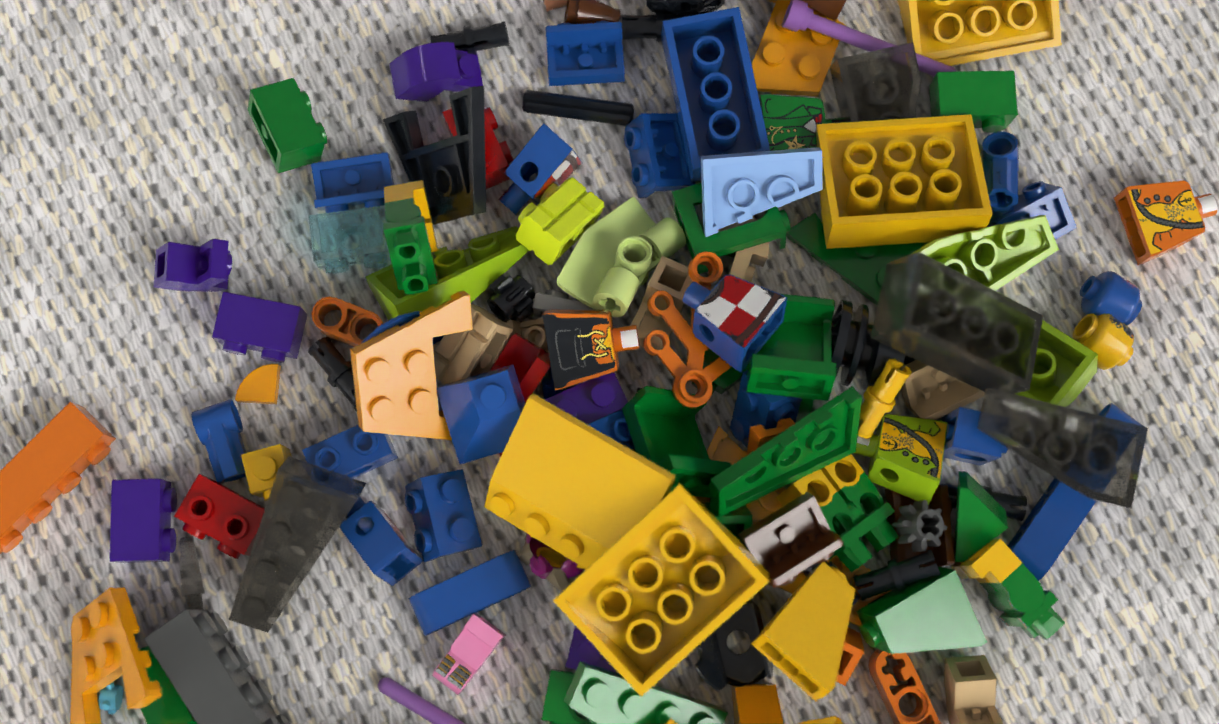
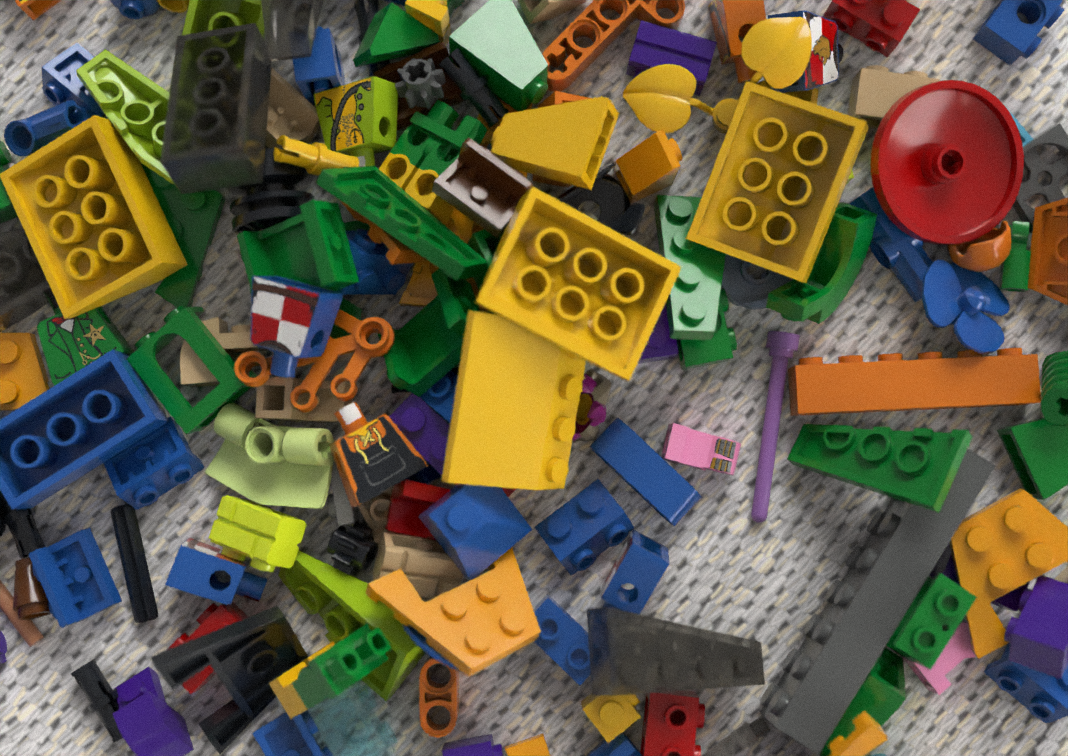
camera: 110 degrees left, 5 degrees up
(337, 368) = (487, 685): black pin -> none
(753, 182) = (147, 355): light blue wing -> none

